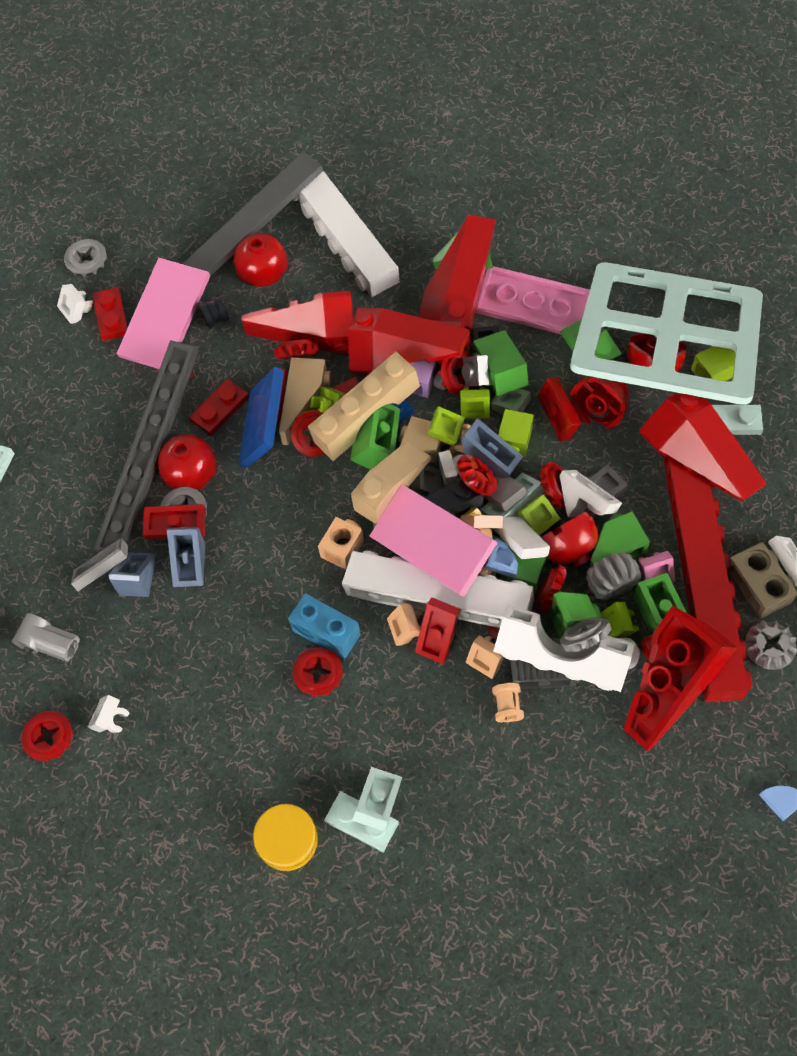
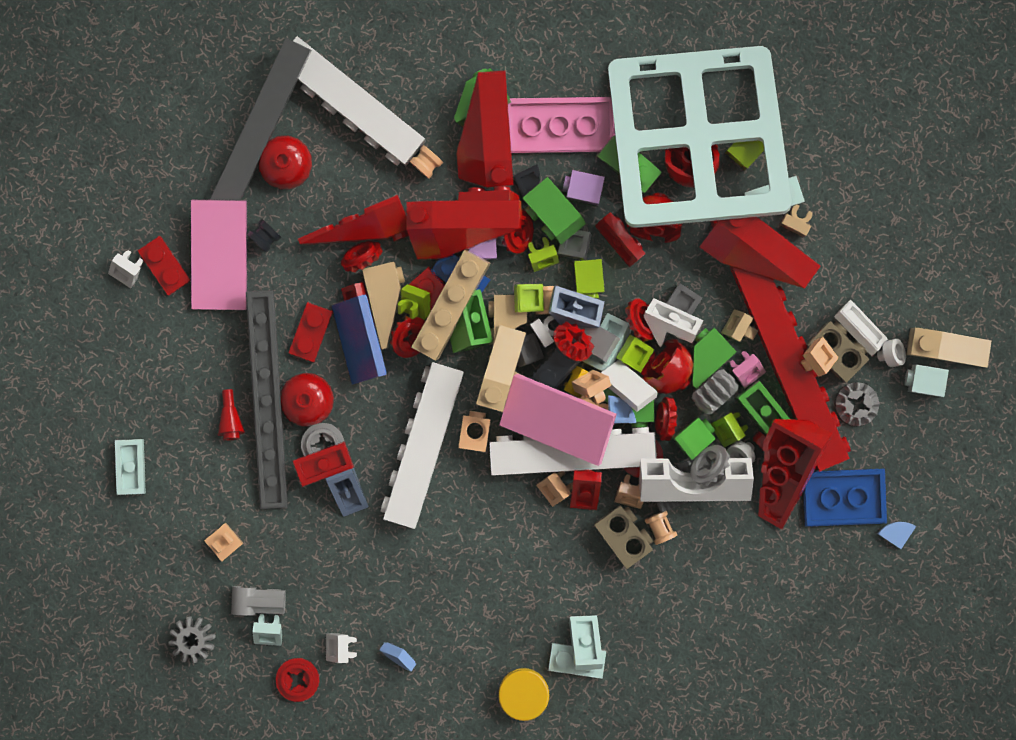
camera: 30 degrees left, 25 degrees up
(39, 673) = (266, 632): none -> light aqua tile
(41, 572) = (223, 542): none -> light nougat tile
(83, 249) = (102, 201): light grey gear -> none
(99, 564) = (276, 523): light grey tile -> none
(101, 464) = (230, 423): none -> red cone
(134, 575) = (306, 516): sand blue slope -> none
(165, 747) = (398, 656): none -> light blue tile
(282, 539) = (423, 445): none -> white brick
(307, 662) = (489, 562): red gear -> none
(324, 626) = (489, 514): dark azure brick -> none
(392, 293) = (426, 162): none -> light nougat wheel
(457, 699) = (618, 540): none -> dark tan brick
(475, 371) = (536, 231): flat silver plate -> none
(540, 354) = (583, 187): none -> lavender brick
(660, 525) = (738, 326): none -> tan tile
(731, 741) = (845, 498): none -> blue tile
(741, 566) = (819, 357): none -> light nougat tile
(751, 445) = (796, 224): none -> tan tile

